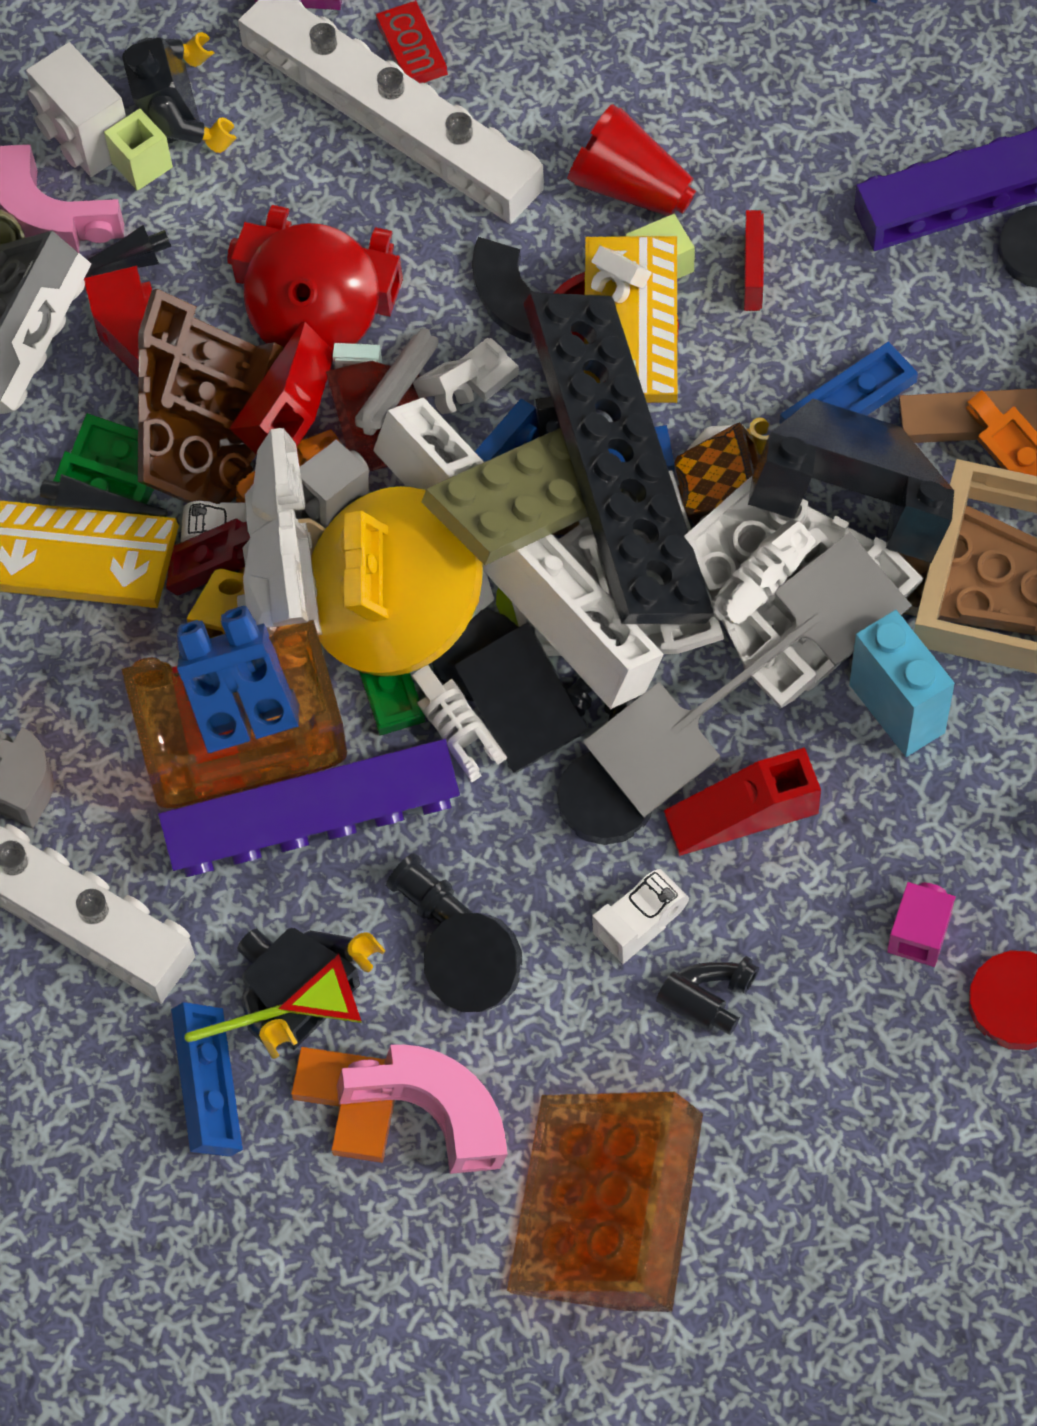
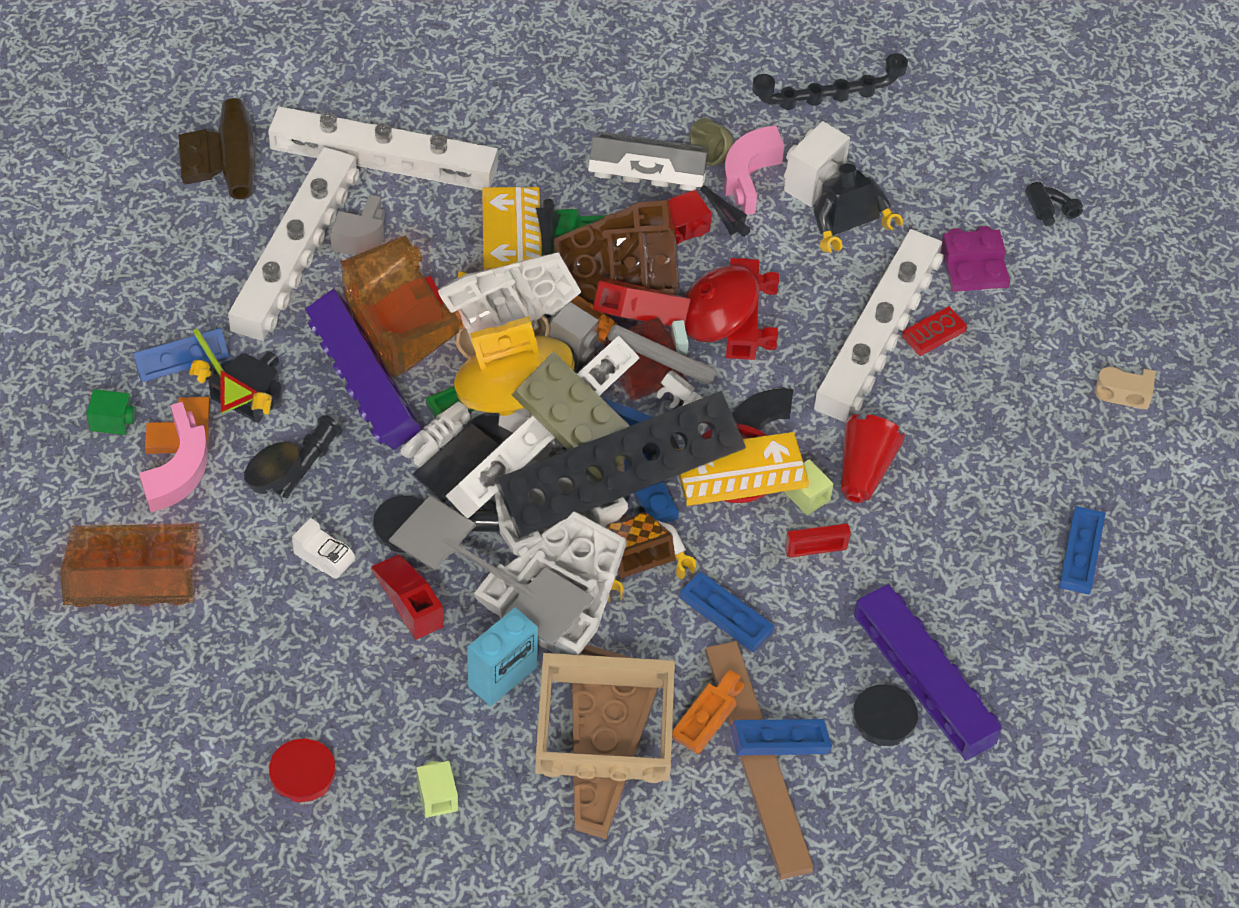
camera: 70 degrees right, 10 degrees down
(138, 149) = (799, 200): yellowish green brick -> none
(235, 681) = (408, 289): blue hips -> none
(300, 1201) = (110, 412): none -> green brick
(621, 270) = (764, 447): white tile -> none
(688, 999) = (272, 584): black plant -> none
(762, 572) = (553, 554): white hinge -> none
(861, 457) = (665, 596): black wedge -> none
(921, 923) = (343, 703): dark pink brick -> none

